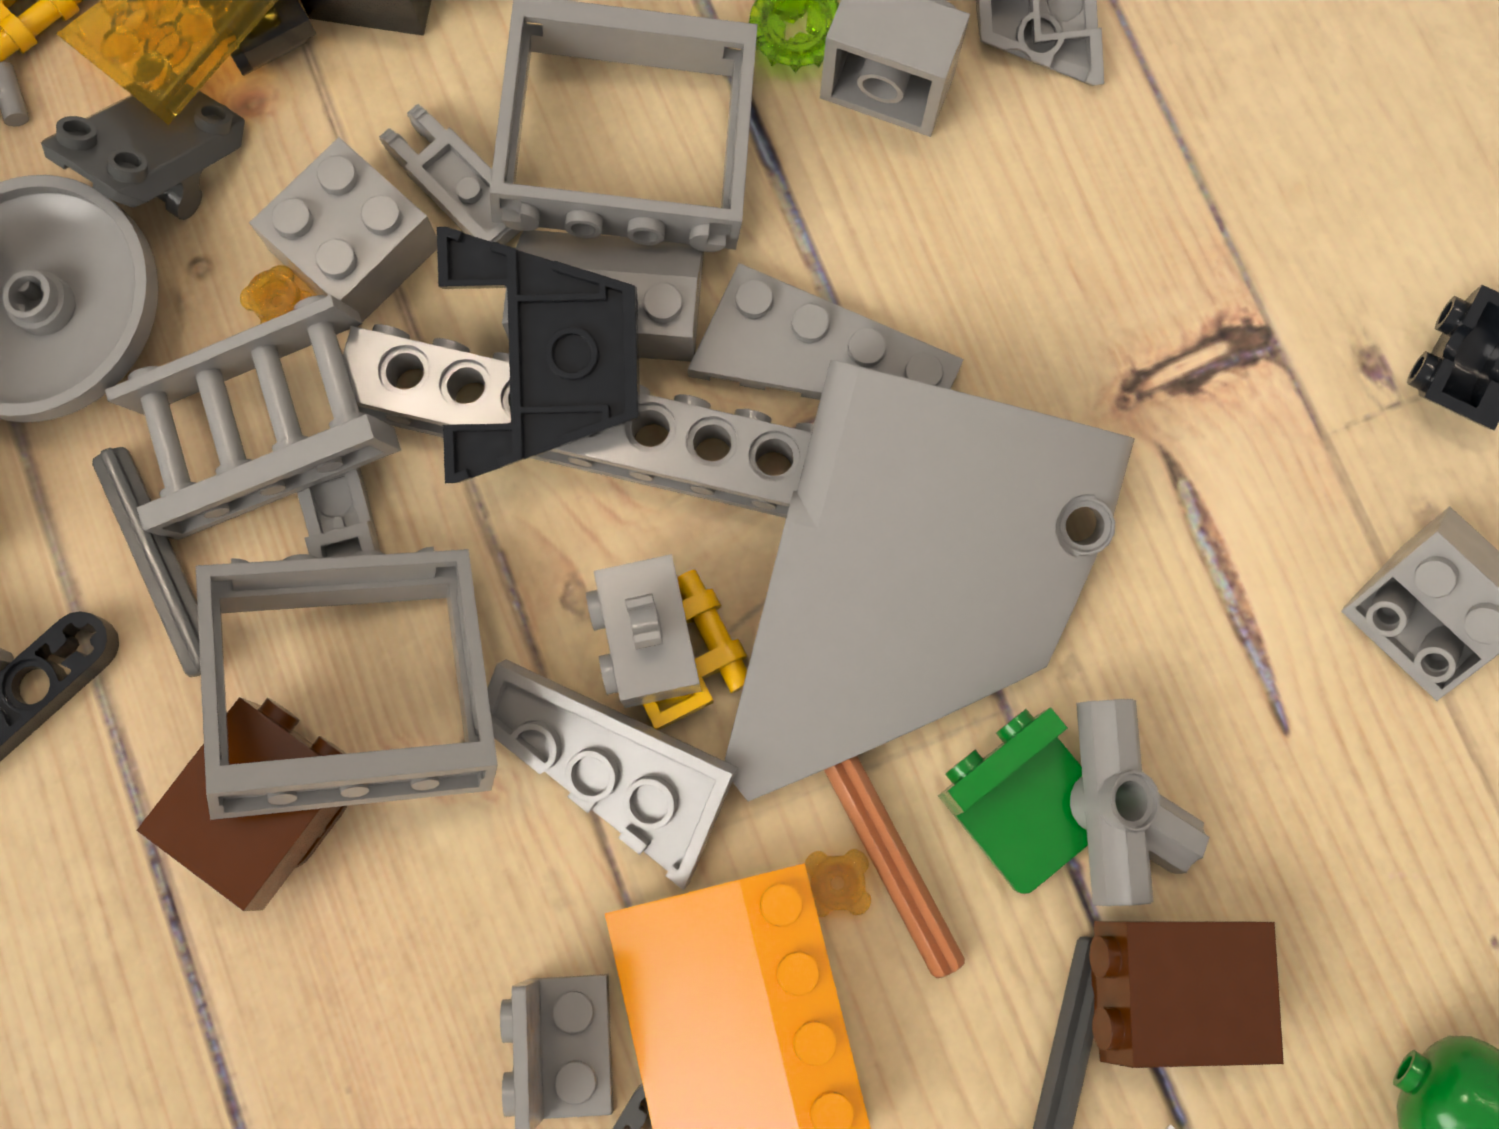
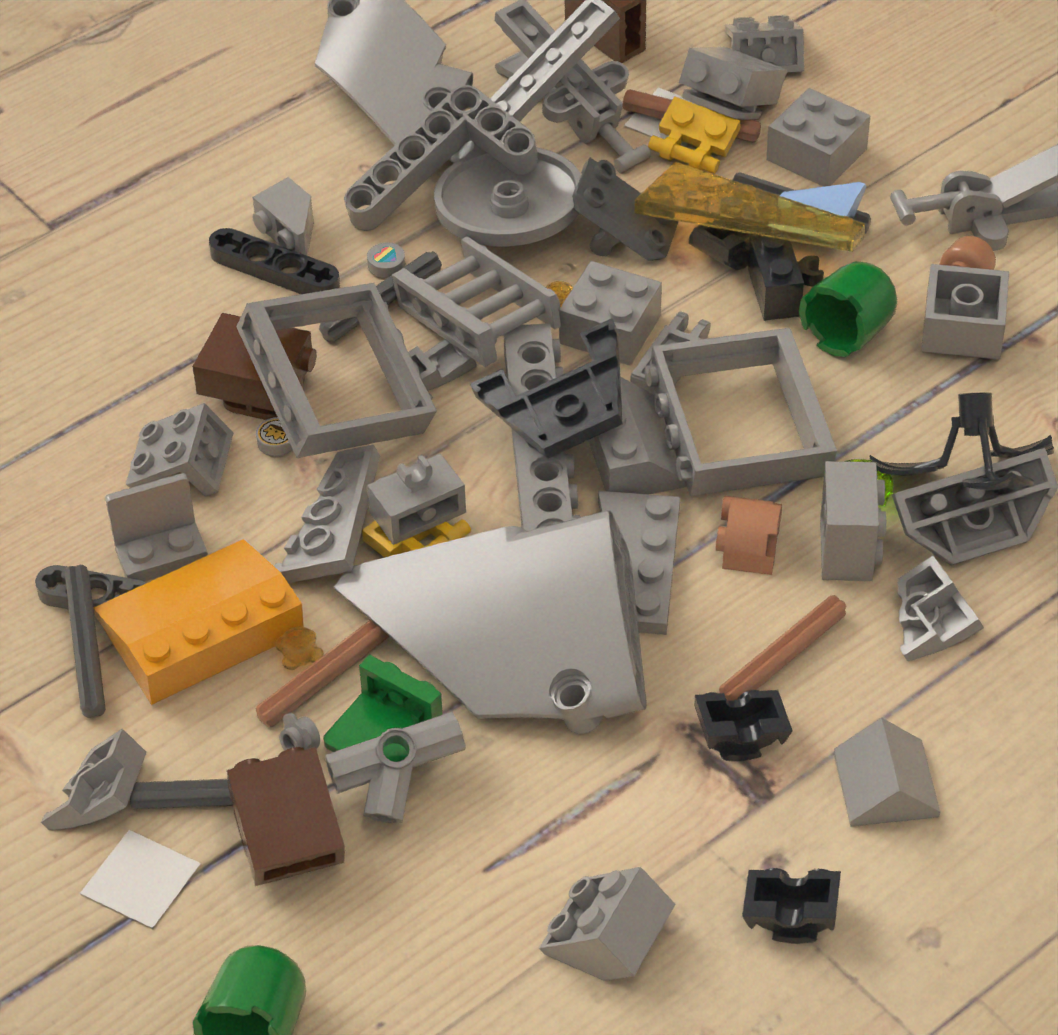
camera: 75 degrees right, 30 degrees down
(75, 529) = (385, 259): none -> light grey tile
(381, 968) = (187, 443): none -> light grey bracket
(397, 818) = (272, 438): none -> light grey tile
(836, 189) = (749, 535): none -> nougat cylinder
(1014, 928) = (299, 733): none -> light grey plate
(1050, 228) = (785, 648): none -> nougat axle
(1171, 318) = (742, 725): none -> black cylinder
(1296, 184) = (885, 776): none -> light grey slope

